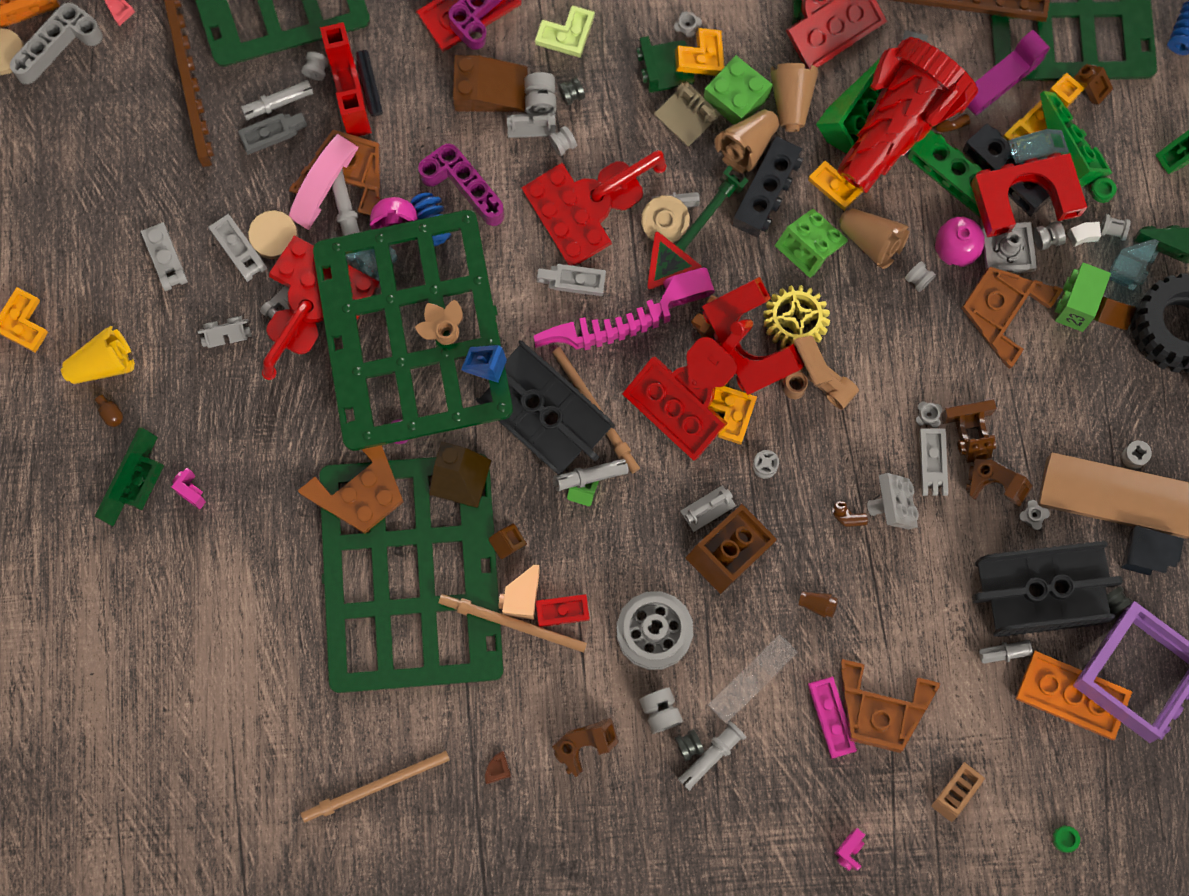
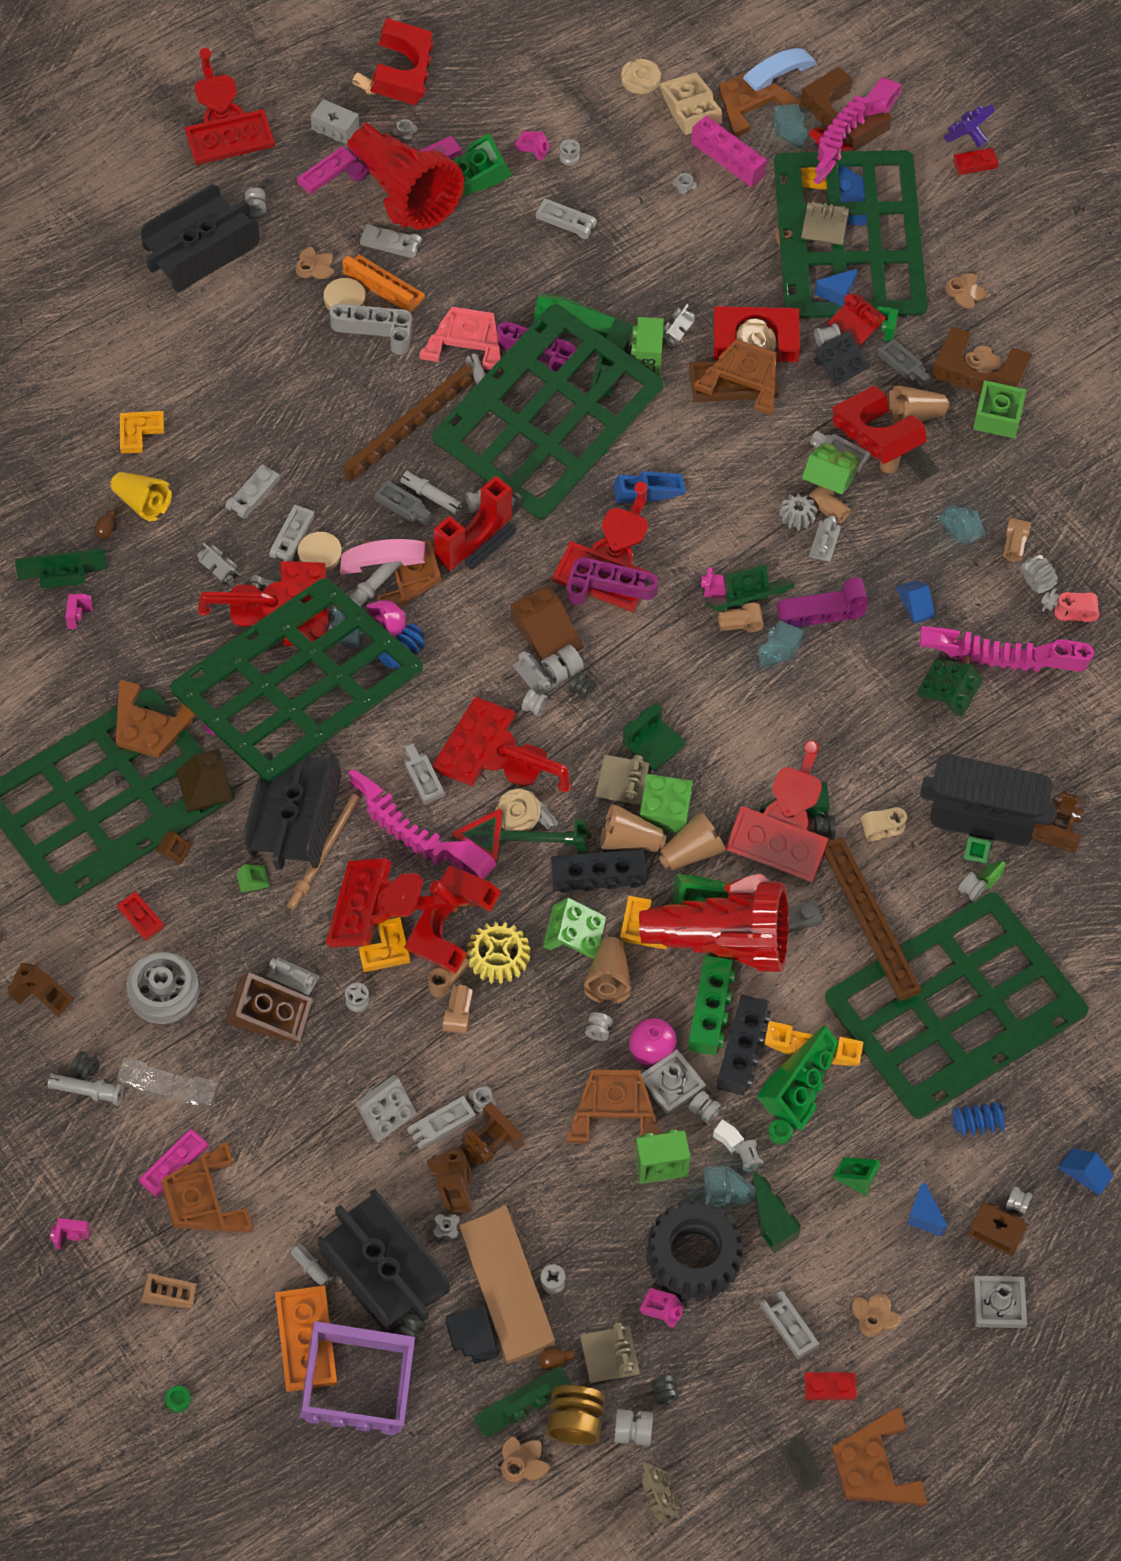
camera: 55 degrees right, 15 degrees down
(440, 320) = (311, 691): medium nougat plate -> none
(464, 606) = (99, 845): medium nougat bar -> none
(467, 186) = (448, 658): magenta beam -> none
(485, 362) = (296, 737): blue slope -> none
(521, 595) = (136, 877): light nougat slope -> none
(567, 38) = (631, 661): yellowish green plate -> none
(581, 477) = (266, 875): light grey pin -> none
(667, 717) = (93, 1034): light grey wheel -> none
(688, 17) = (702, 732): light grey plate -> none
(705, 58) = (678, 764): light orange plate -> none
(813, 360) = (462, 976): medium nougat slope -> none
(819, 603) = (264, 1102): reddish brown cone -> none
(846, 517) = (352, 1082): reddish brown arm -> none
(953, 124) = (754, 980): reddish brown arm -> none
(1008, 72) = (824, 993): magenta beam -> none
(1038, 145) = (770, 1047): clear light blue slope -> none
(1054, 174) = (710, 1032): red arch -> none
(1095, 82) = (871, 1070): reddish brown bracket -> none
(1115, 313) = (663, 1188): reddish brown slope -> none

